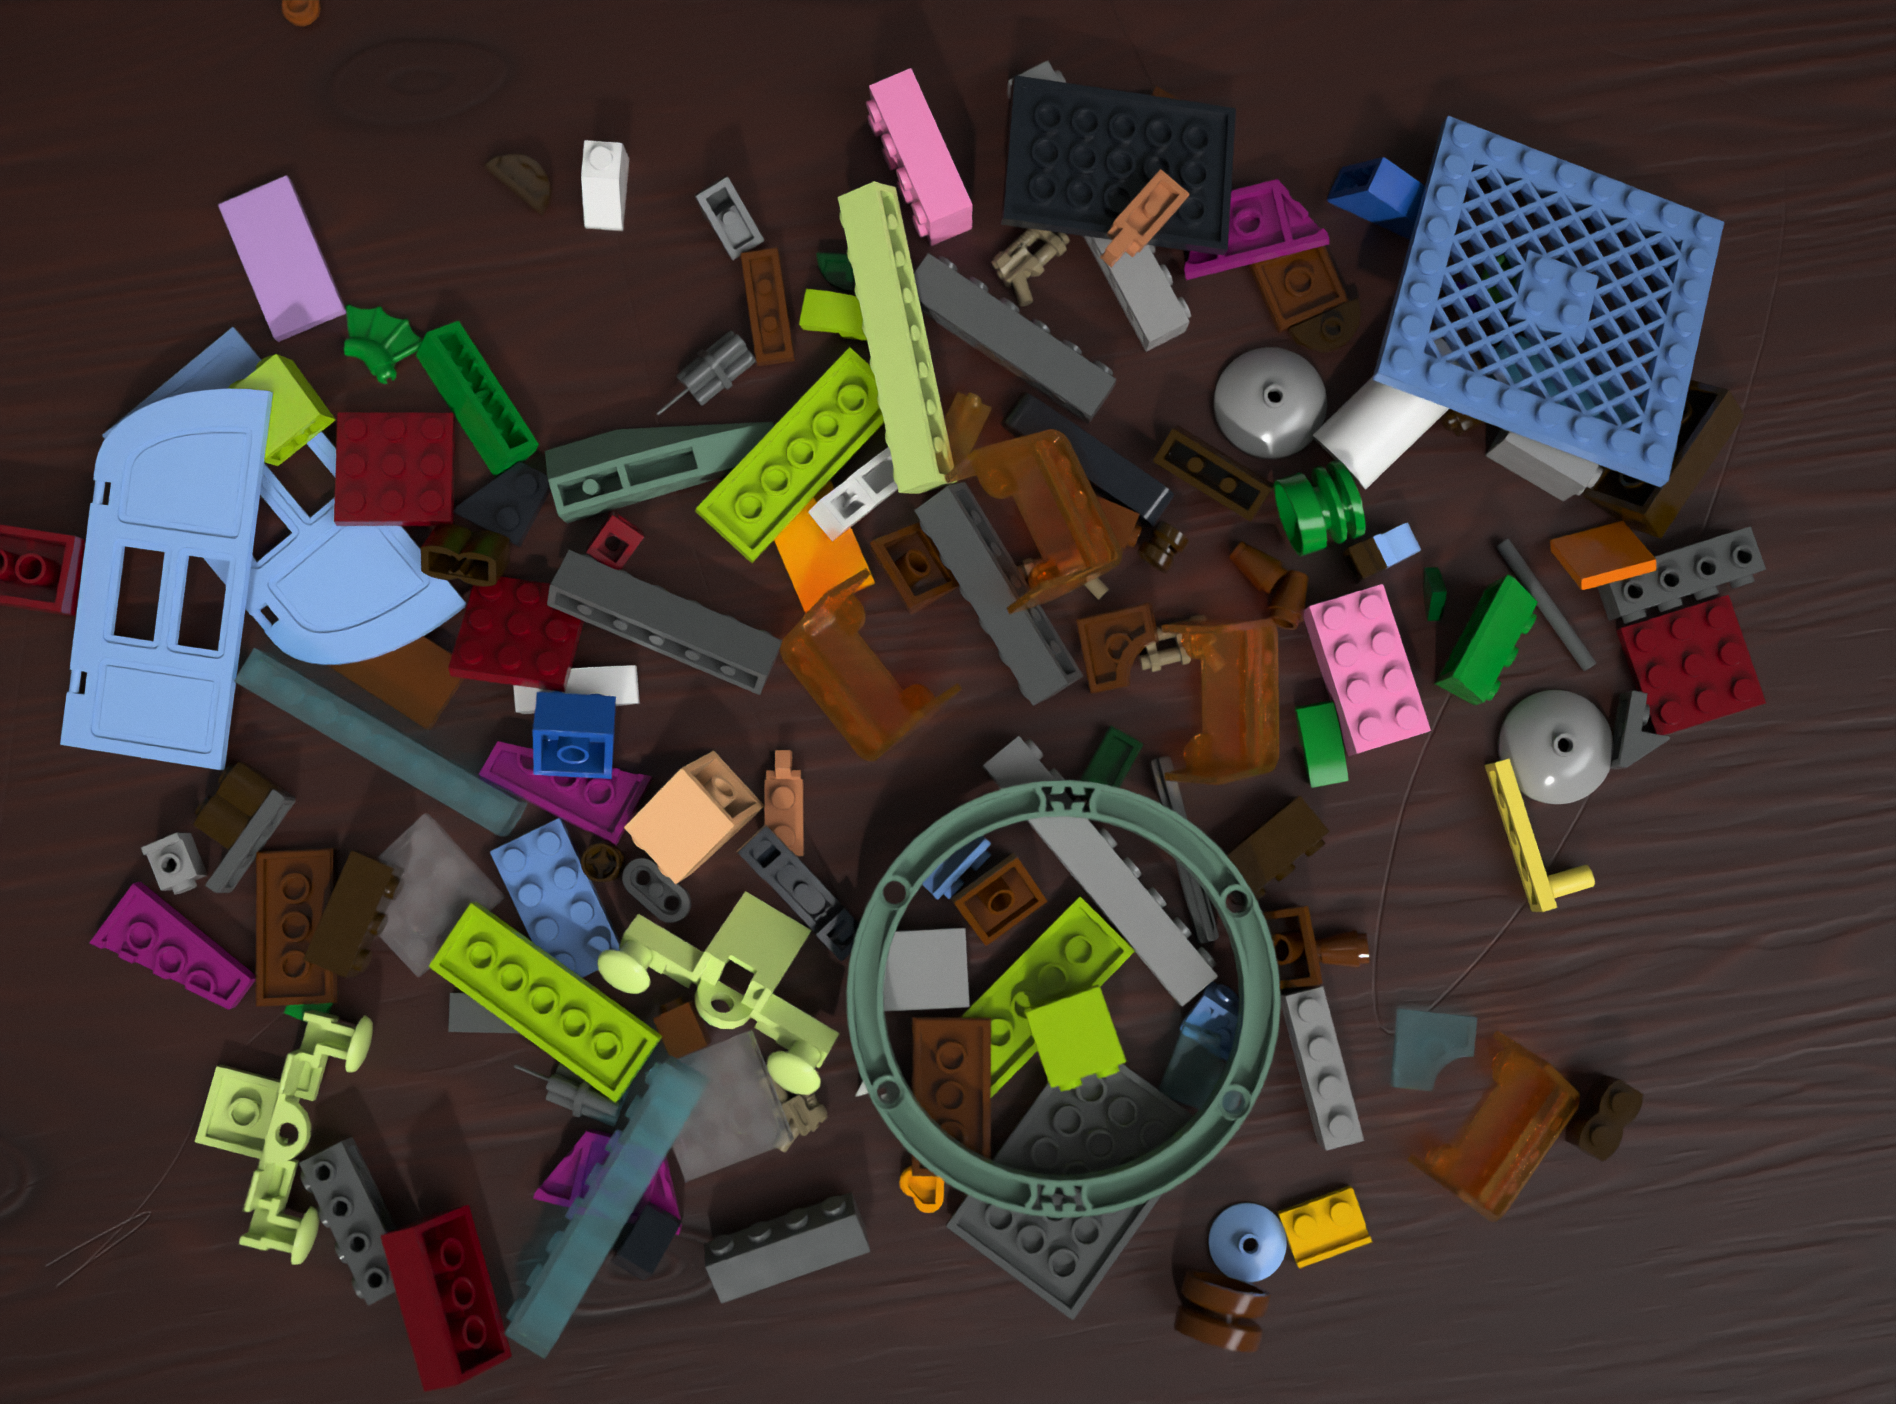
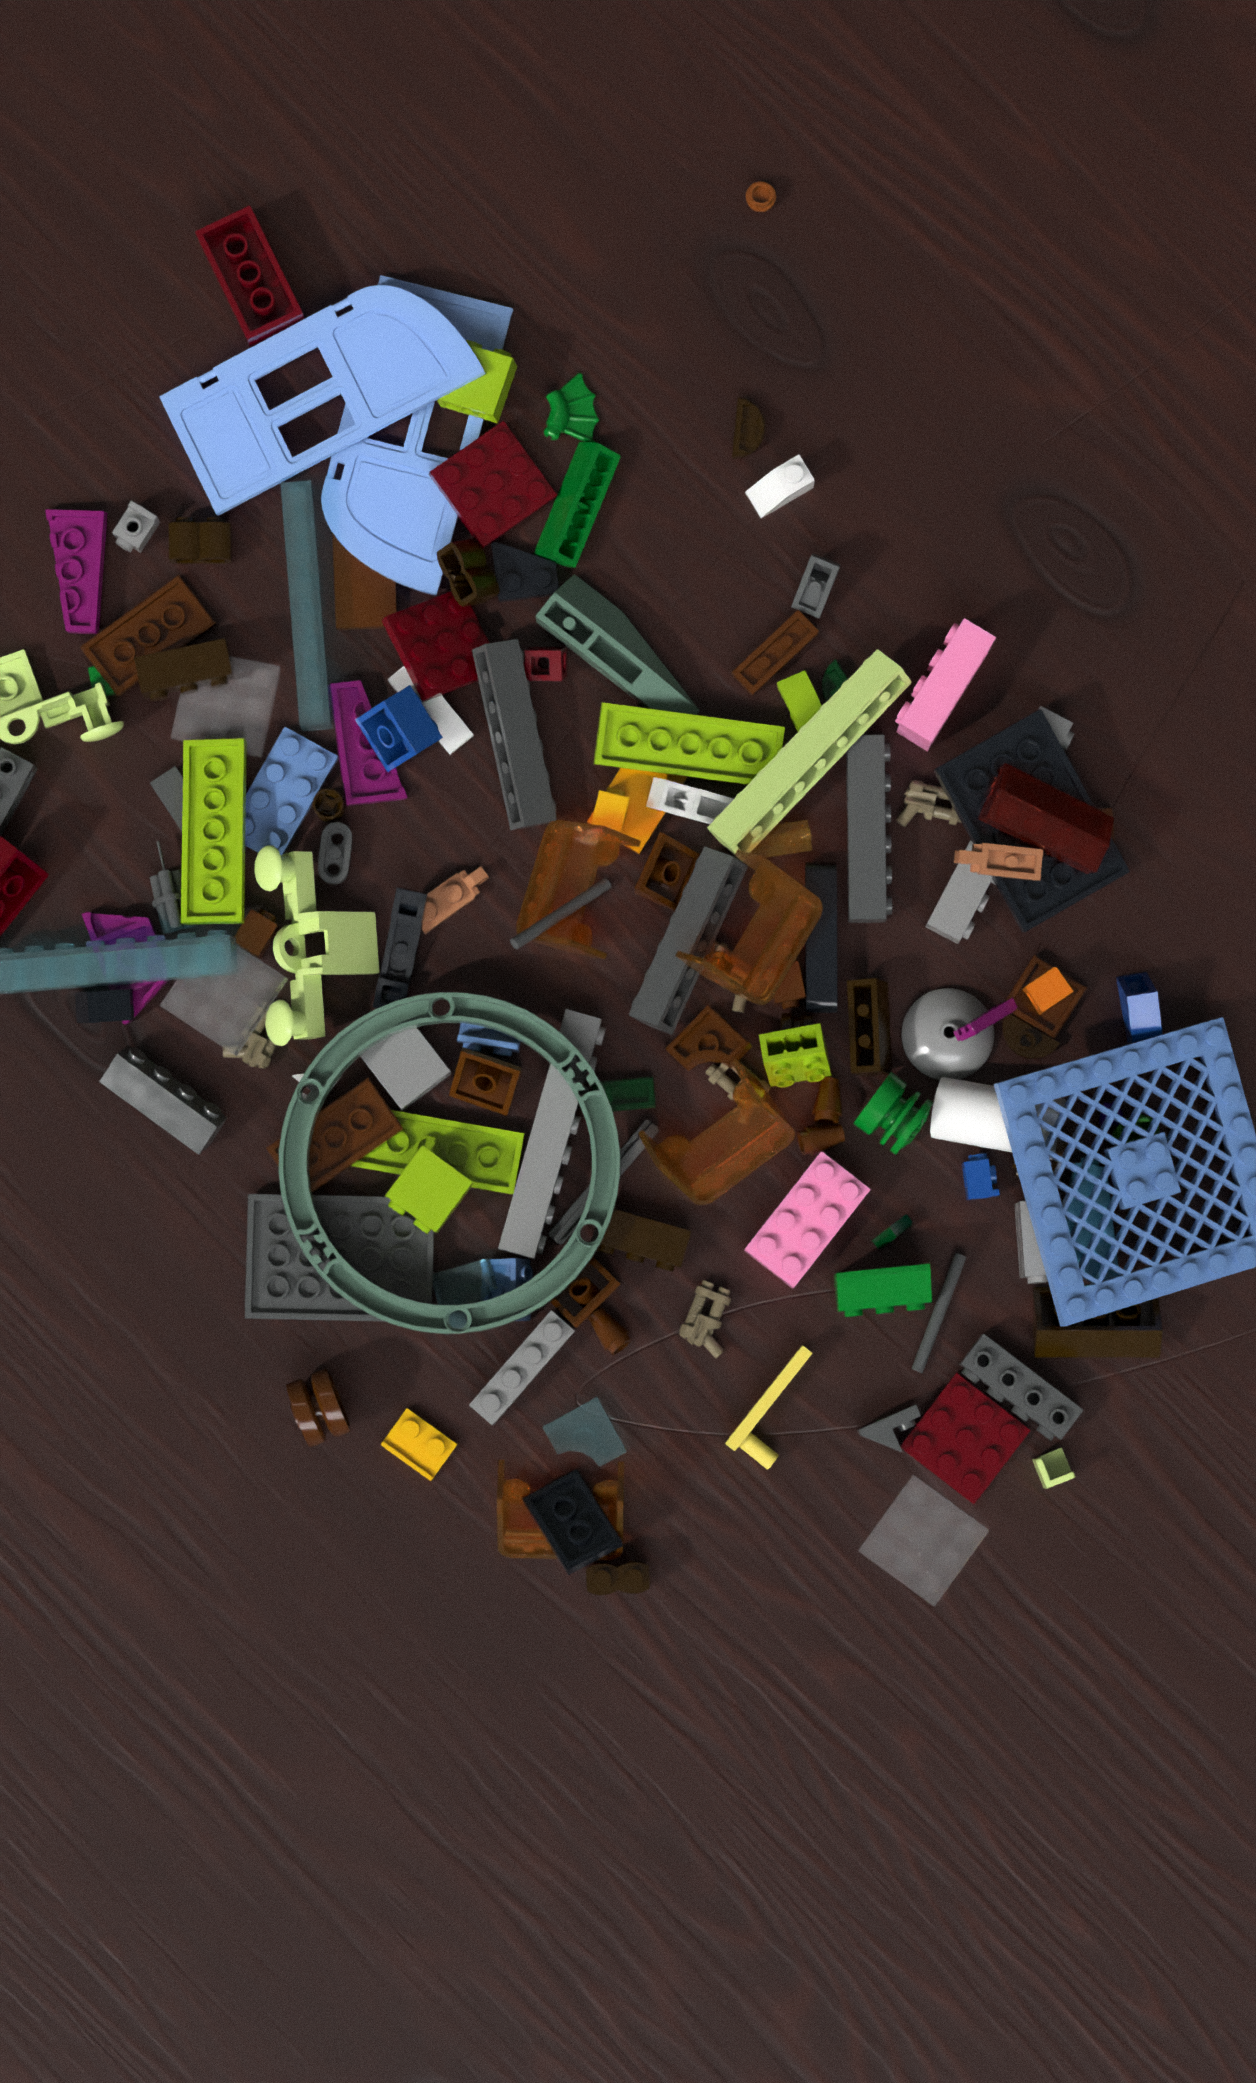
camera: 55 degrees right, 0 degrees up
(251, 841) = (183, 567): dark grey tile -> none
(282, 258) = (581, 307): lavender tile -> none
(693, 816) = (400, 843): light nougat slope -> none
(714, 369) = (707, 646): dark grey piece -> none
(810, 577) = (611, 809): none -> yellow brick
(881, 704) = (560, 913): none -> dark grey bar
(926, 1190) = (262, 1164): light orange tile -> none
(1133, 145) = (1048, 819): none -> clear red slope
(1194, 564) = (795, 1055): none -> lime brick
(1233, 1228) = (390, 1401): light blue dish -> none
(1261, 227) = (1059, 942): magenta wing -> none
(1287, 351) = (985, 1020): none -> magenta tile
(1301, 270) = (1047, 990): none -> orange panel
(1321, 744) = (738, 1225): green slope -> none
(1380, 552) = (896, 1177): leg -> none
(1399, 854) = (699, 1328): none -> dark tan piece
(1439, 470) = (979, 1177): none -> blue brick
(1519, 1126) = (572, 1522): none -> black tile
(1531, 743) = (823, 1389): light grey dish -> none
(1603, 555) = (995, 1324): orange tile -> none
(1769, 779) = (923, 1540): none -> clear plate
(1784, 599) = (1053, 1468): none -> yellowish green panel

